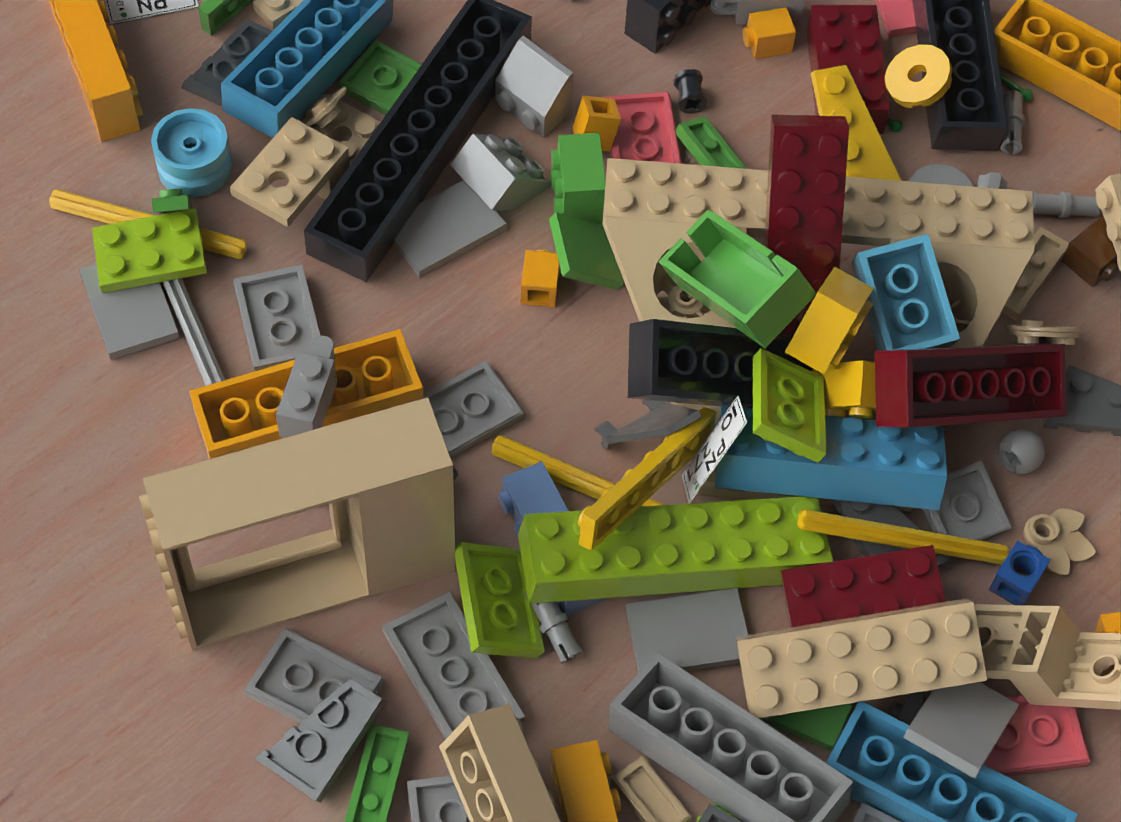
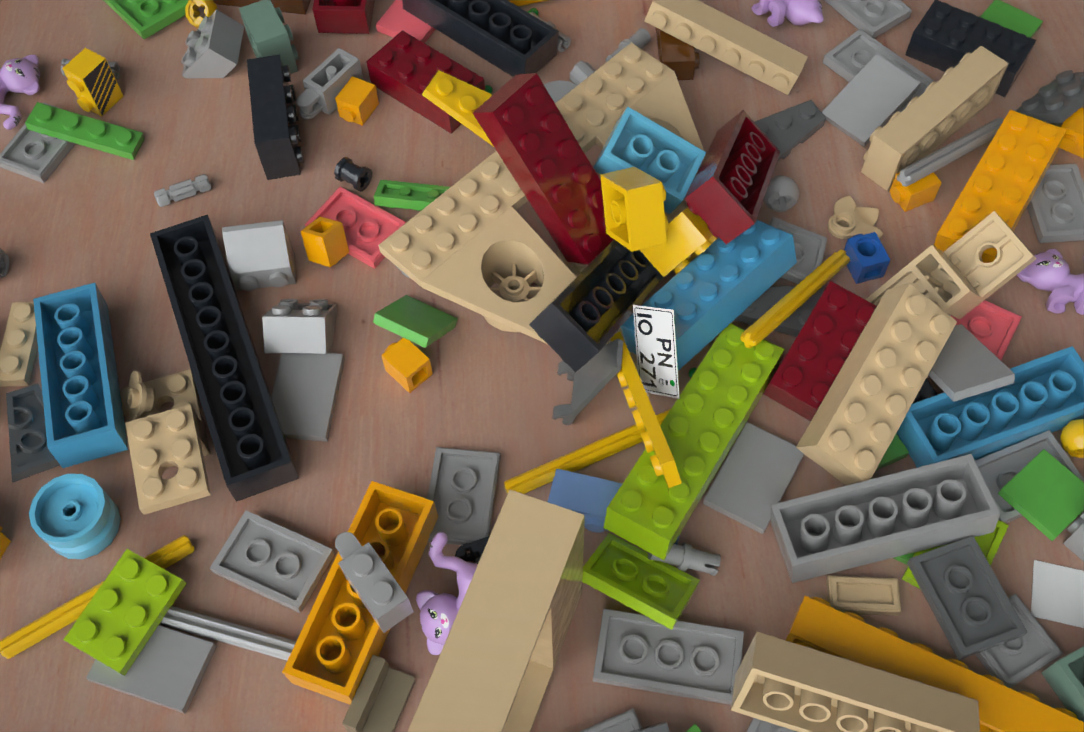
camera: 45 degrees left, 0 degrees up
(171, 200) = (103, 562): bright green plate -> none
(379, 77) = (148, 344): bright green tile -> none
(578, 177) = (360, 281): bright green brick -> none
(738, 278) = (558, 233): bright green piece -> none
(789, 405) = (670, 280): lime plate -> none
(912, 61) = (469, 34): yellow tile -> none
(1031, 330) = (709, 122): tan piece -> none

